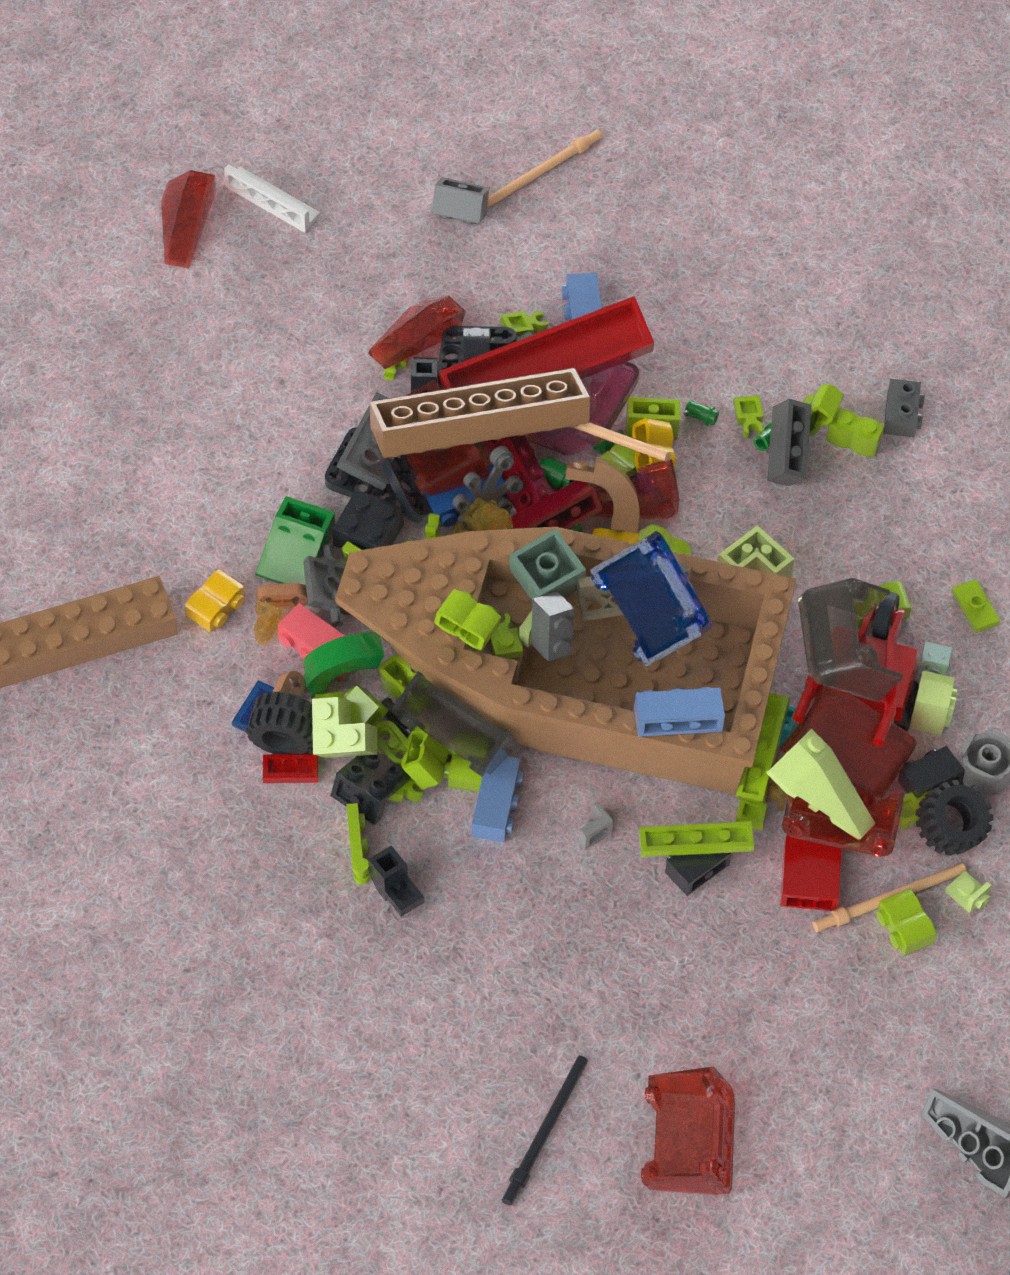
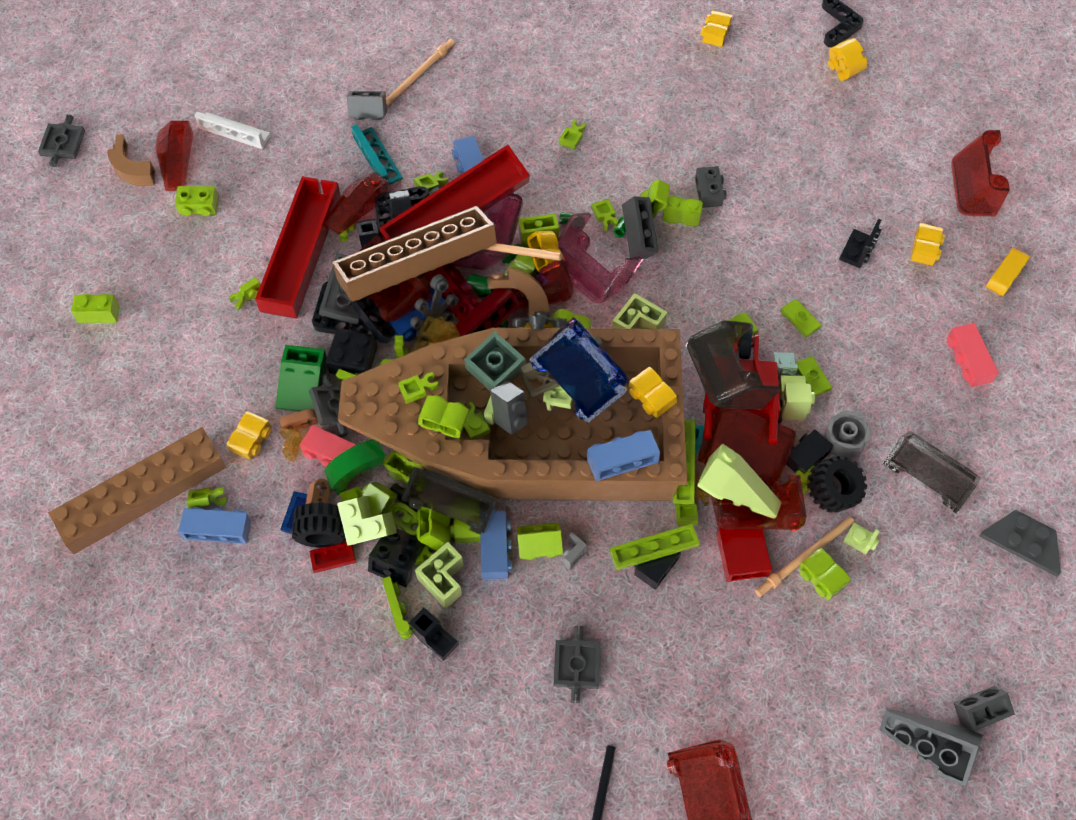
camera: 10 degrees left, 5 degrees up
(38, 167) = (61, 141): none -> dark grey plate
(47, 400) = (95, 308): none -> lime brick
(124, 229) = (132, 172): none -> medium nougat arch
(141, 663) = (204, 496): none -> lime plate
(151, 699) = (215, 525): none -> medium blue brick
(204, 285) = (196, 200): none -> lime brick
(249, 419) = (247, 292): none -> lime plate
(327, 375) = (297, 248): none -> red piece
(417, 817) = (437, 575): none -> yellowish green brick
(439, 577) = (414, 388): none -> lime plate
(452, 275) = (373, 158): none -> teal fence
(554, 804) = (539, 541): none -> lime brick
(564, 957) = (577, 664): none -> dark grey plate
(615, 530) = (538, 321): none -> dark grey plant
(616, 629) = (558, 398): none -> yellowish green bracket
(702, 484) = (584, 270): none -> clear pink windscreen
(731, 301) = (572, 136): none -> lime plate
(736, 645) = (652, 392): none -> yellow brick
(969, 683) = (813, 374): none -> lime plate
(977, 189) = (716, 28): none -> yellow brick

